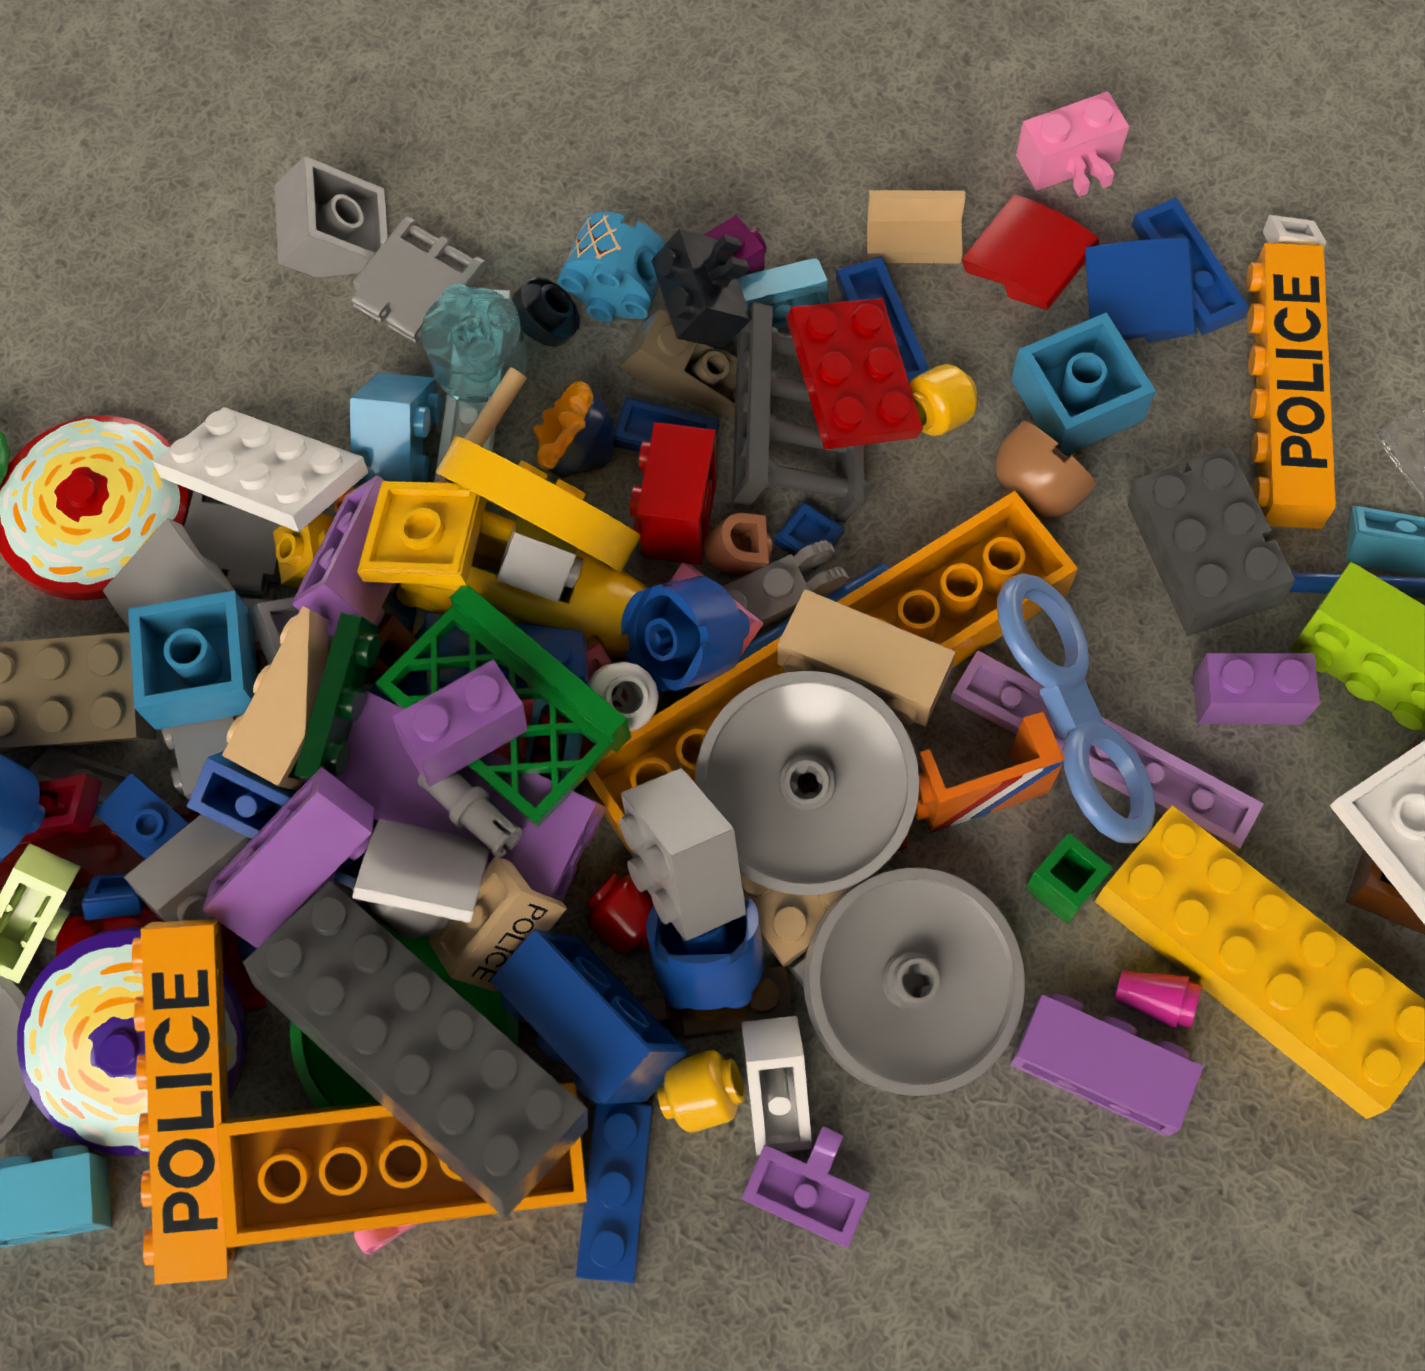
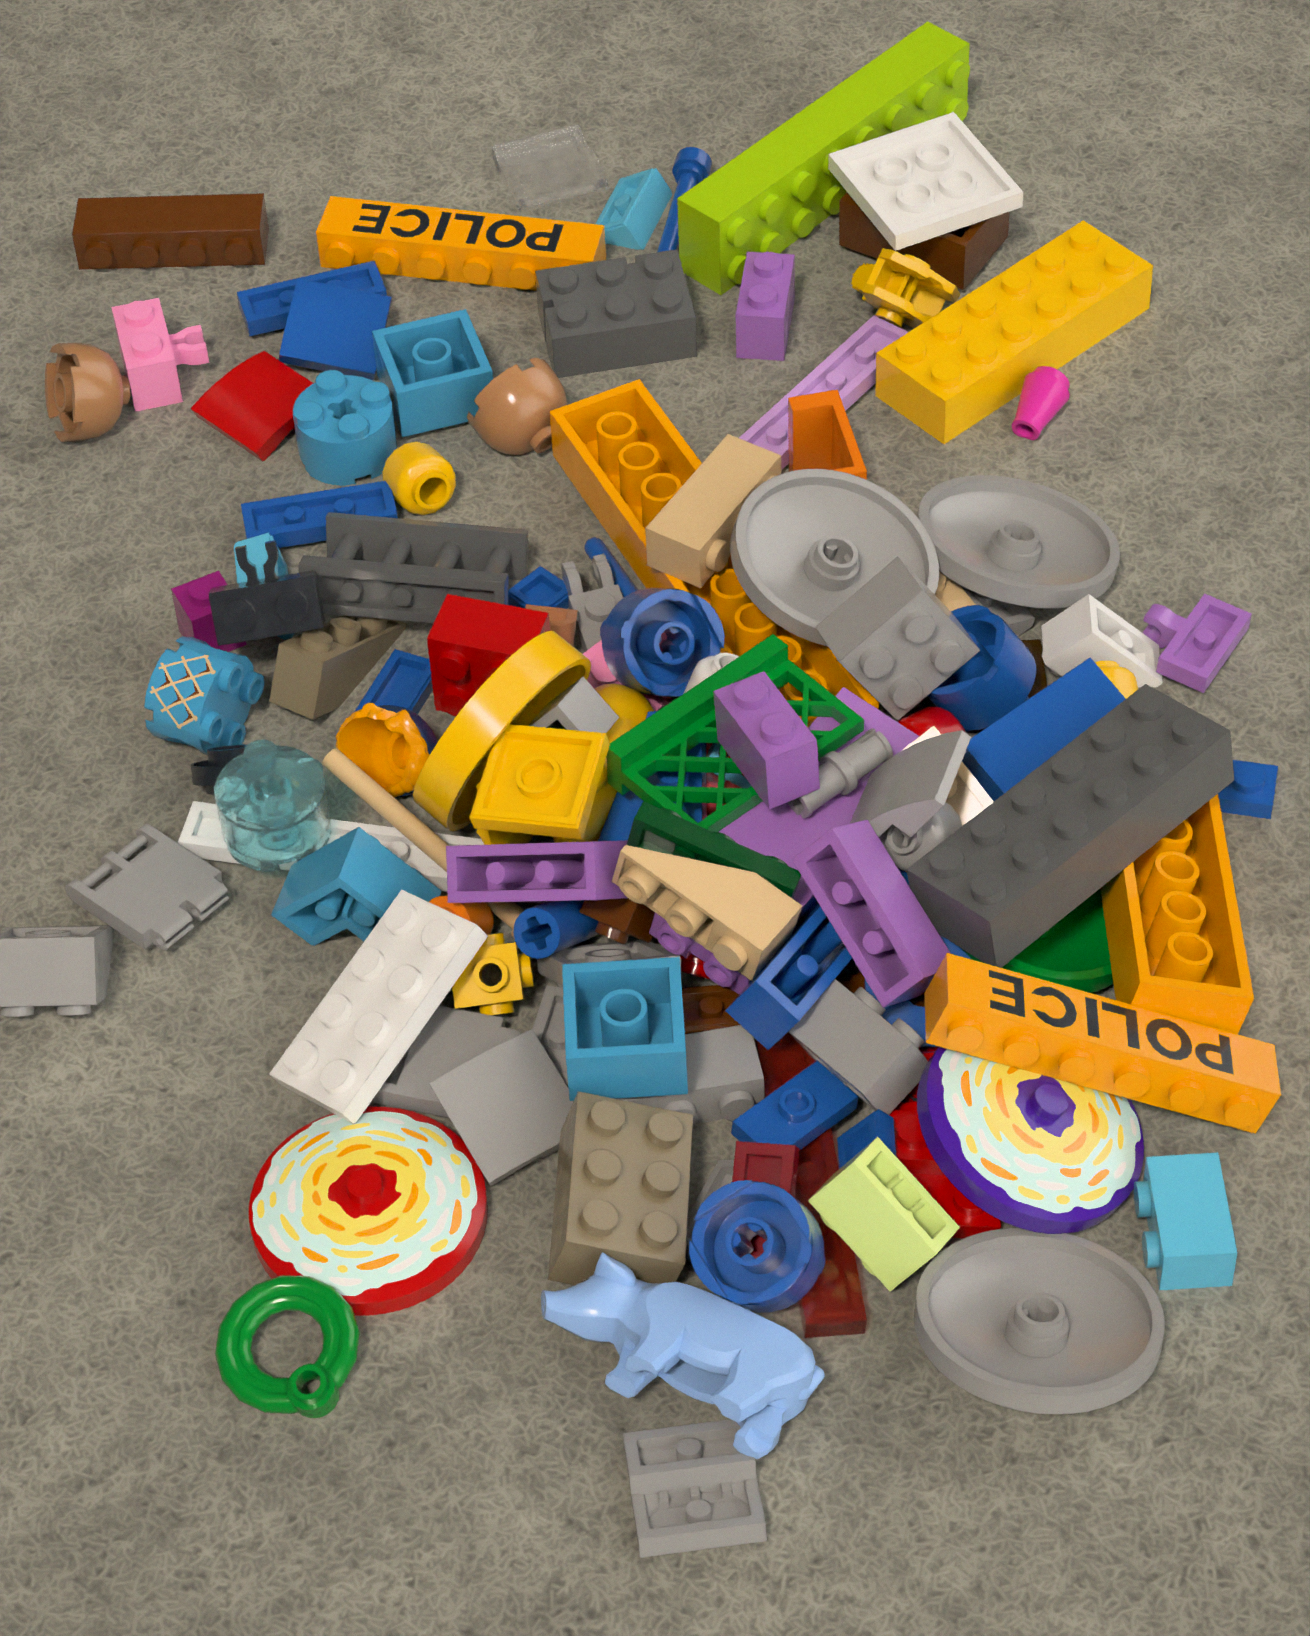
camera: 85 degrees left, 20 degrees down
(853, 373) = (387, 514): red plate -> none
(915, 226) = (209, 483): tan panel -> none
(991, 318) = (344, 427): none -> dark azure brick
(1000, 101) = (84, 391): none -> medium nougat cylinder
(1068, 878) = (931, 435): green brick -> none
(1075, 710) = (777, 391): medium blue bar -> none
(1108, 1064) = (1098, 437): medium lavender brick -> none
(1256, 128) = (171, 231): none -> reddish brown brick
(1292, 231) = (300, 226): white plate -> none
(1293, 829) = (903, 288): none -> yellow hinge

